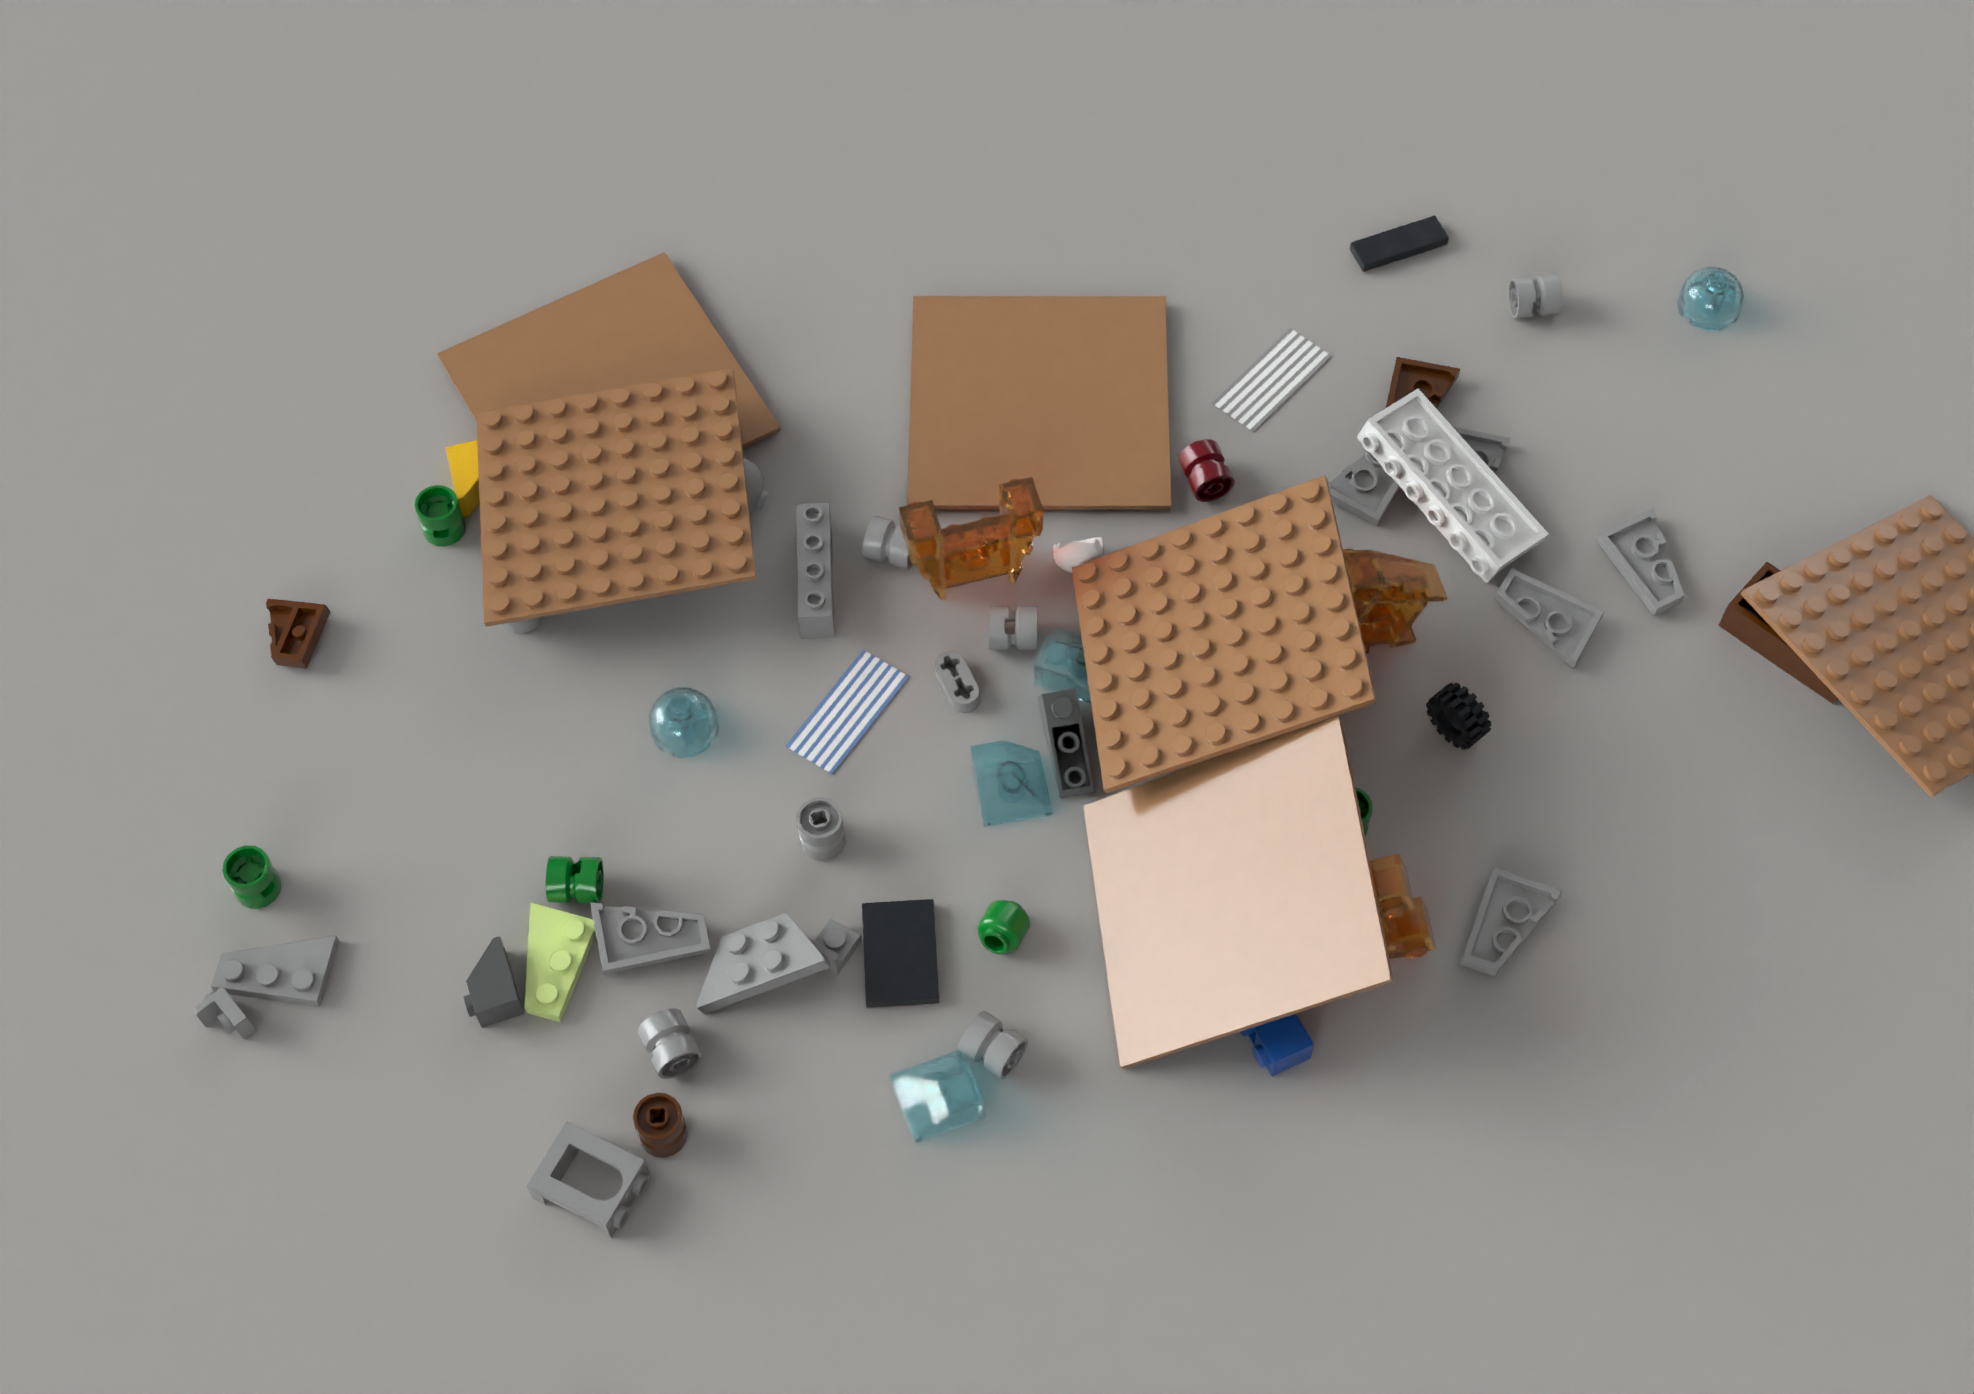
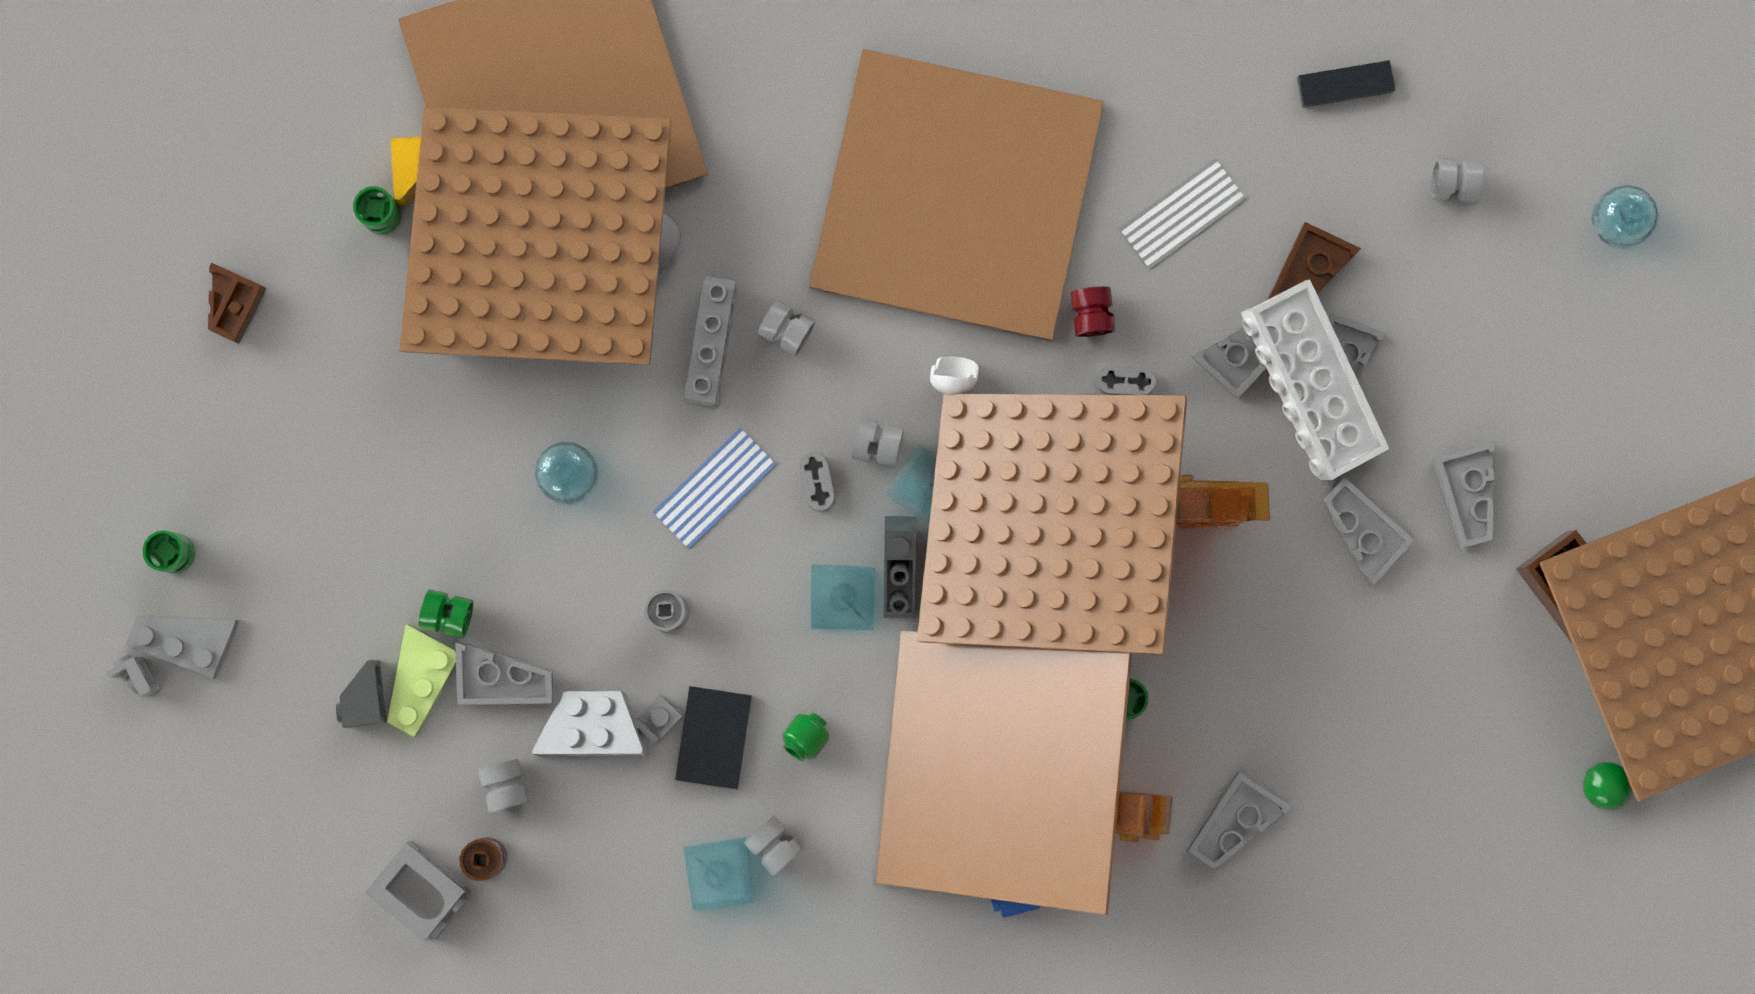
camera: 10 degrees right, 25 degrees up
(976, 548) = (855, 368): clear orange wedge -> none
(1458, 716) = (1251, 622): black tyre -> none
(1894, 806) = (1607, 786): none -> green hair

